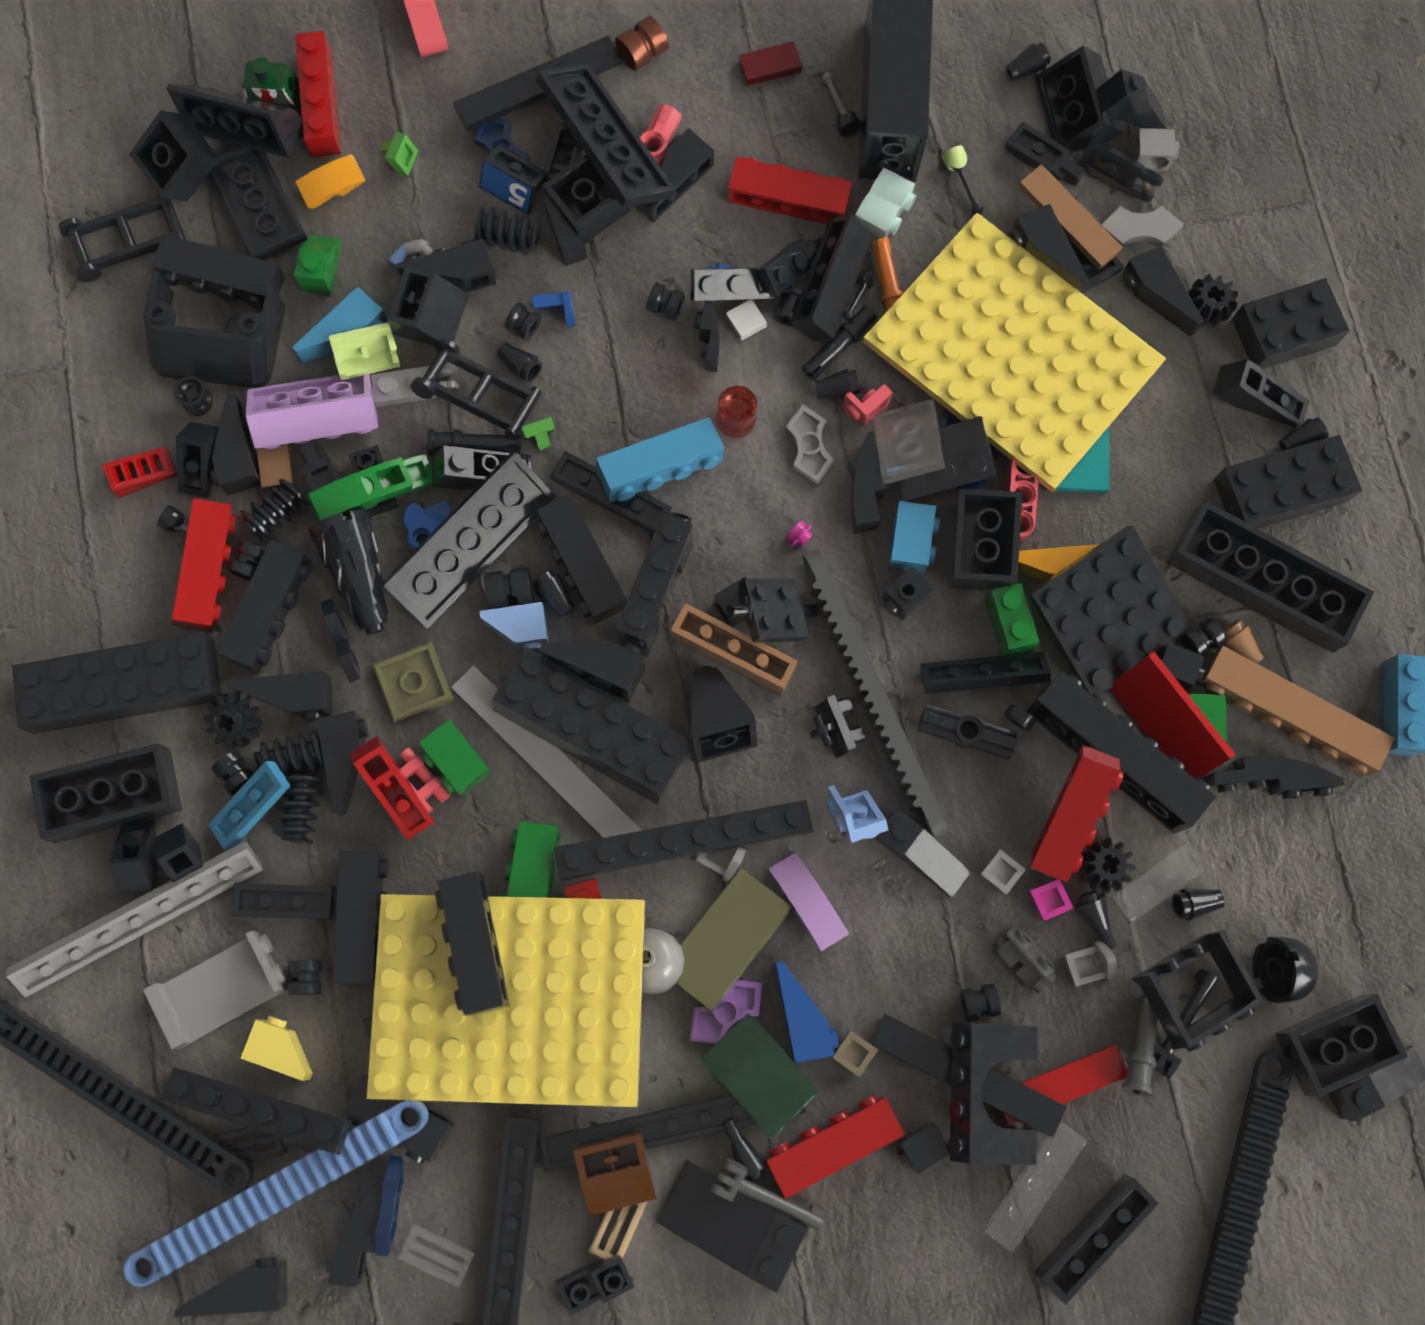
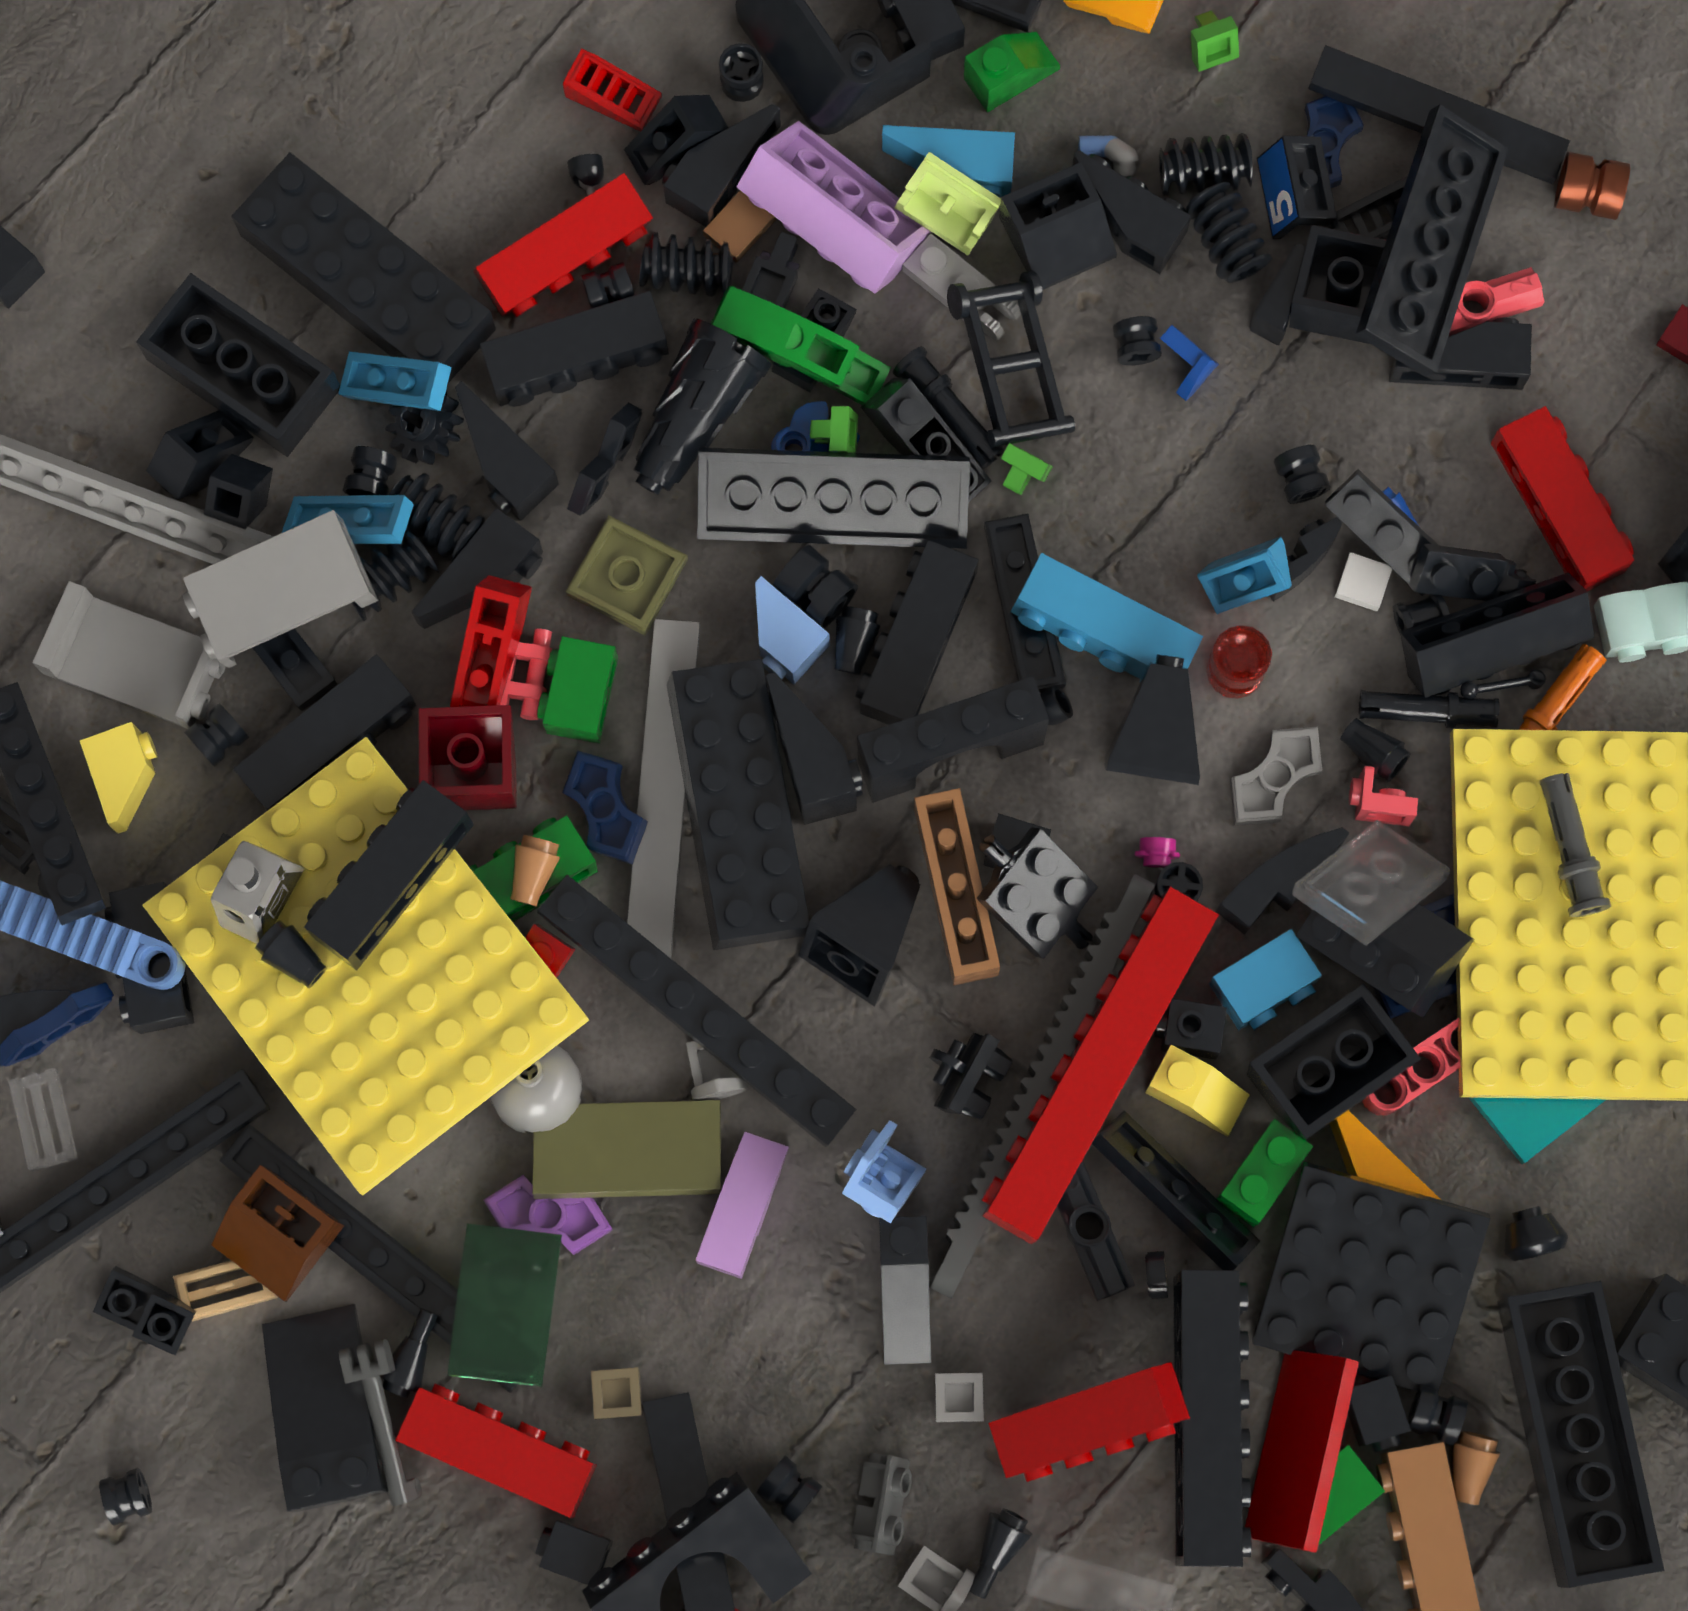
camera: 55 degrees right, 0 degrees up
(195, 714) = (395, 380): none -> dark azure plate
(254, 874) = (277, 587): none -> light grey panel
(417, 1027) = (254, 889): none -> light grey torso
(436, 507) = (839, 431): none -> bright green tile
(439, 846) = (469, 755): none -> dark red slope
(460, 209) = (1205, 163): none -> black piece
(469, 1036) = (290, 953): none -> black cone
(521, 363) = (1087, 379): black cone -> none
(535, 863) = (533, 868): none -> medium nougat cone
(544, 802) = (612, 825): none -> dark blue tile
(695, 370) = (1246, 575): none -> dark azure slope
(739, 477) = (1158, 727): none -> black slope
(806, 1026) = (605, 1309): blue slope -> none
(830, 534) = (1182, 878): none -> black wheel
(893, 654) = (1099, 1066): none -> red brick
(939, 618) = (1197, 1090): none -> light yellow slope
(989, 335) = (1577, 866): none -> dark grey pin
(1050, 900) = (973, 1478): dark pink plate -> none
(1116, 874) = (1072, 1527): black gear -> none
(1150, 516) = (1533, 1235): none -> black cone

